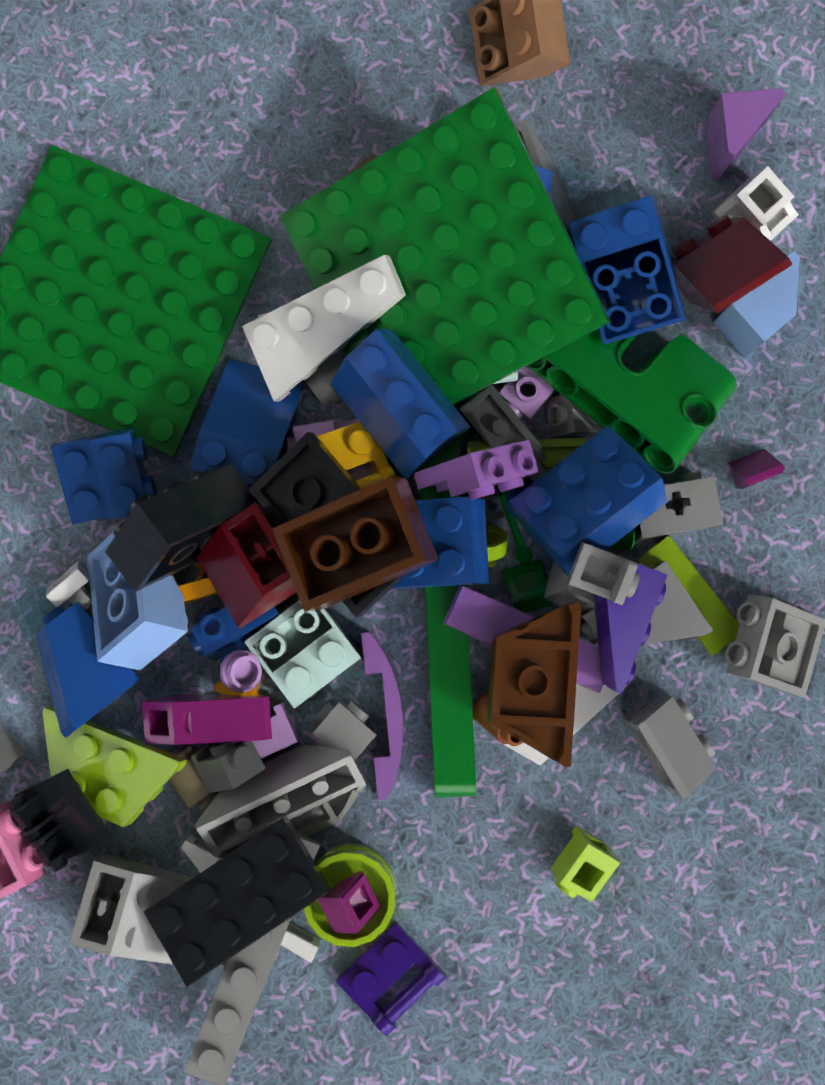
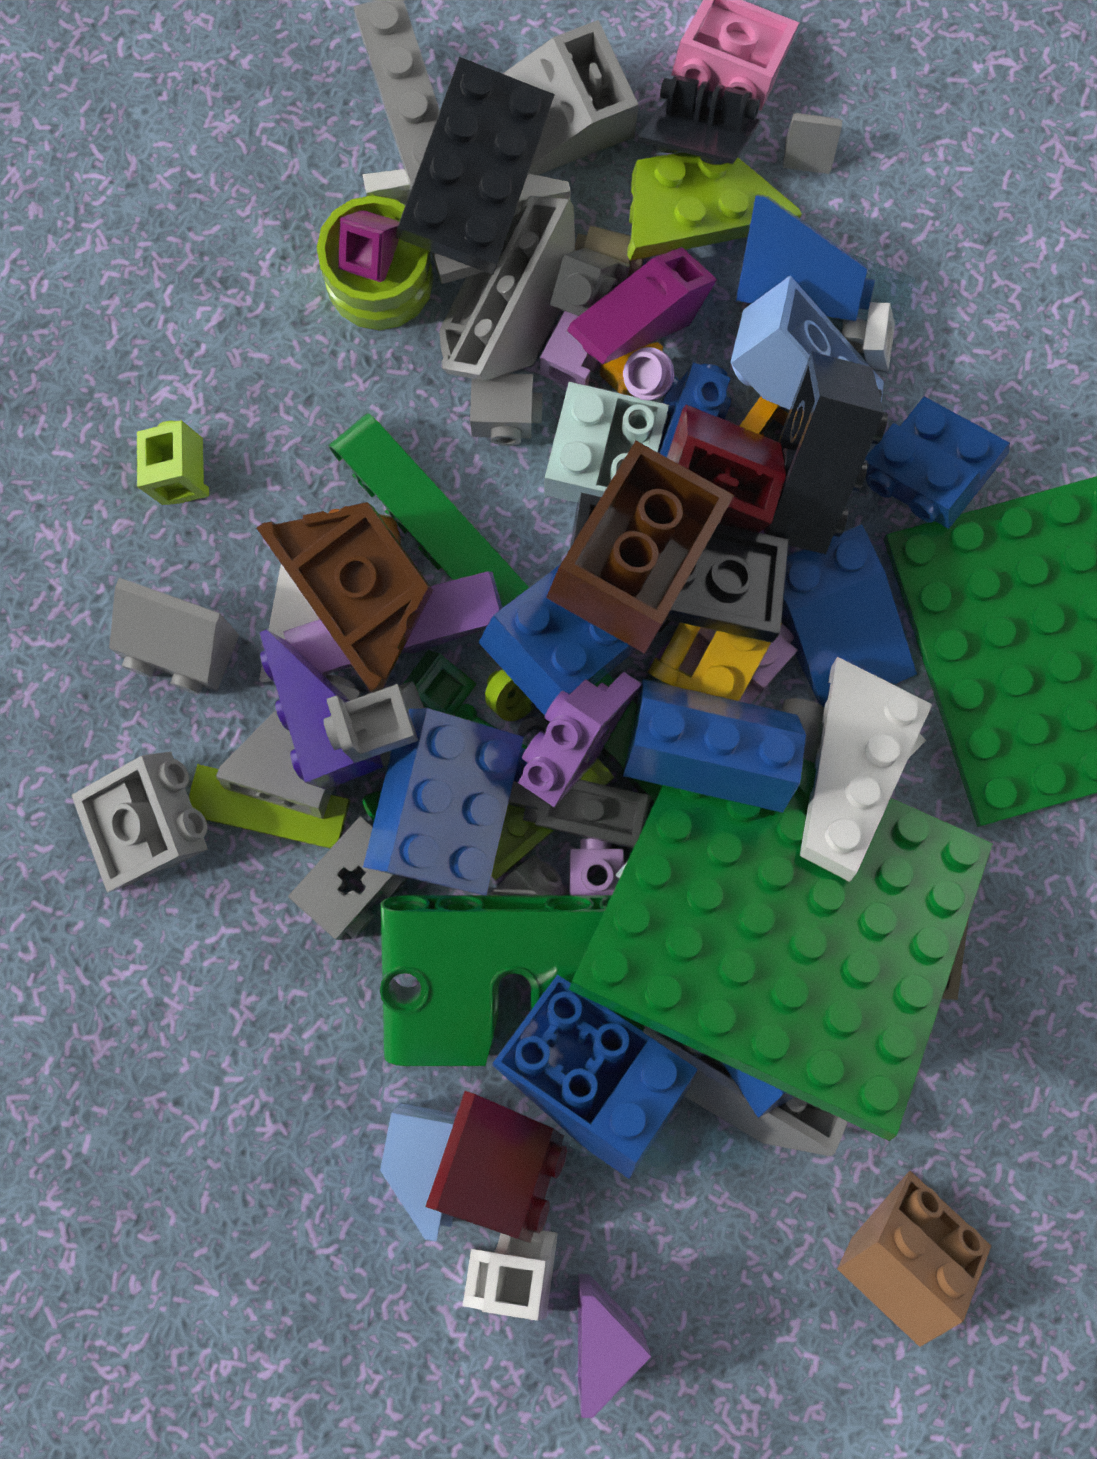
camera: 140 degrees right, 5 degrees down
(380, 968) = (292, 232): dark purple plate -> none
(385, 764) = (523, 495): medium lavender slope -> none
(755, 468) = (299, 989): magenta slope -> none

